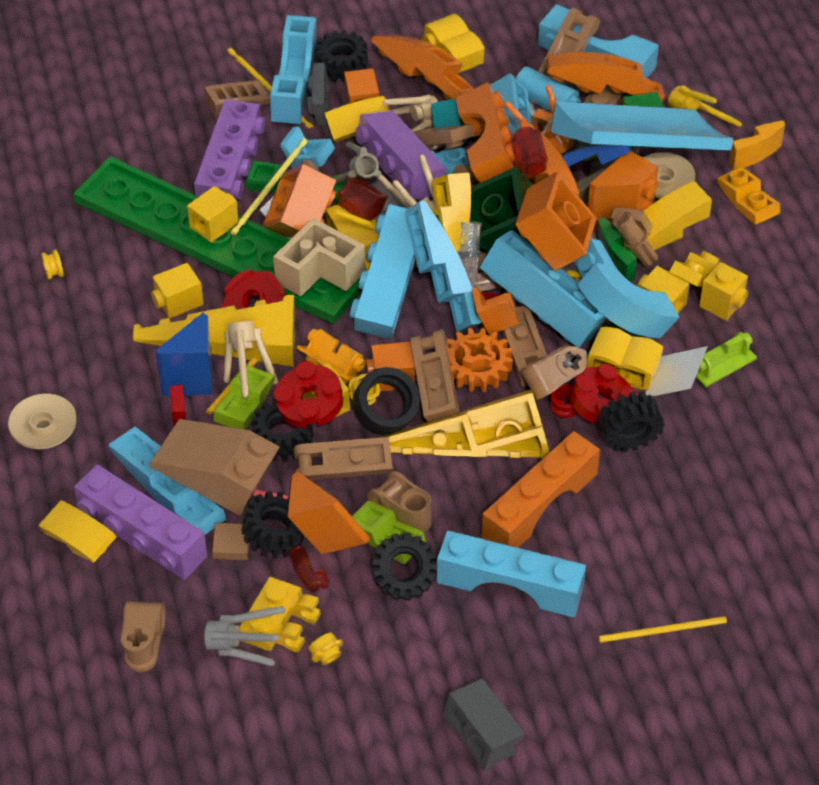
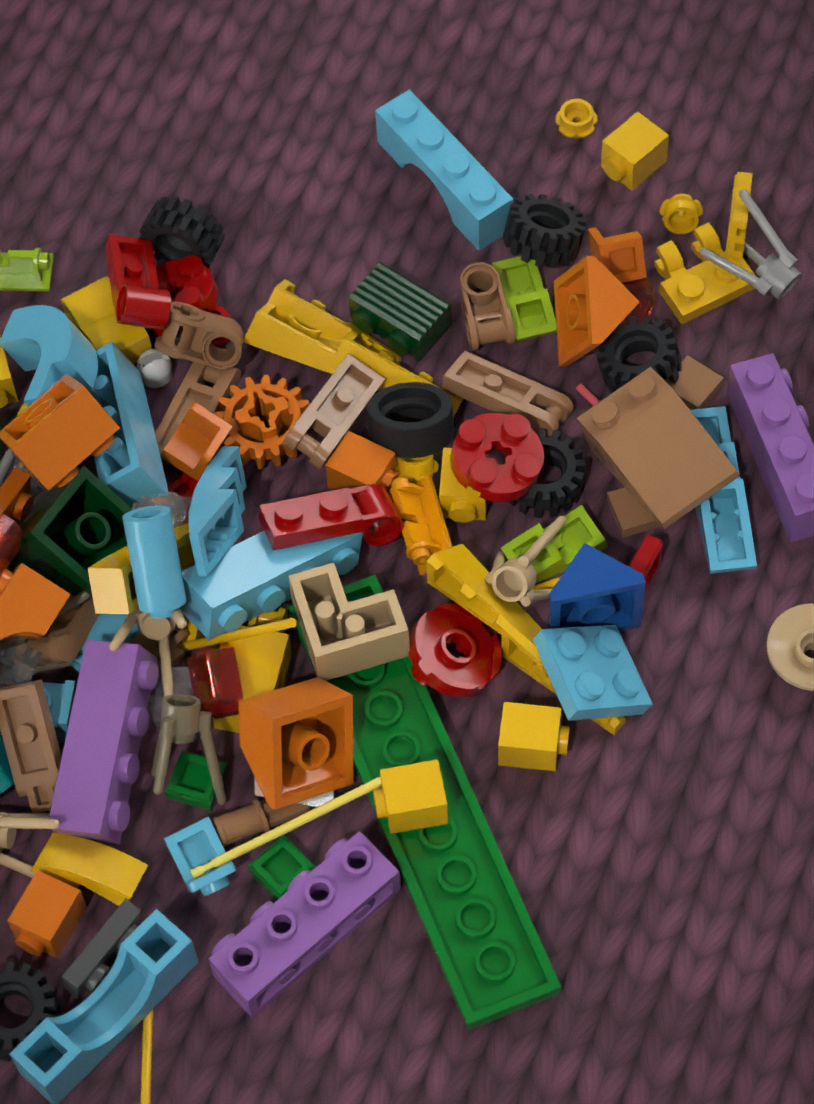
camera: 140 degrees left, 10 degrees up
(52, 264) = (660, 887): yellow bush -> none
(155, 325) = (592, 672): none -> medium azure plate
(218, 93) = (225, 1057): medium nougat slope -> none
(279, 656) = (738, 216): none -> yellow tile
(342, 579) = (619, 254): none -> orange panel
(376, 308) = (331, 516): none -> red plate
(392, 670) = (634, 151): none -> yellow brick
(438, 190) = (154, 560): none -> medium azure brick
(452, 669) = (579, 111): none -> yellow plate
(455, 469) = (399, 311): none -> dark green brick
(482, 723) = (589, 59): dark grey hinge -> none
(518, 510) = (385, 217): orange arch -> none
(618, 360) = (136, 283): none -> red plate
(662, 629) = (343, 60): yellow axle -> none
(676, 372) = (68, 265): white sticker -> none

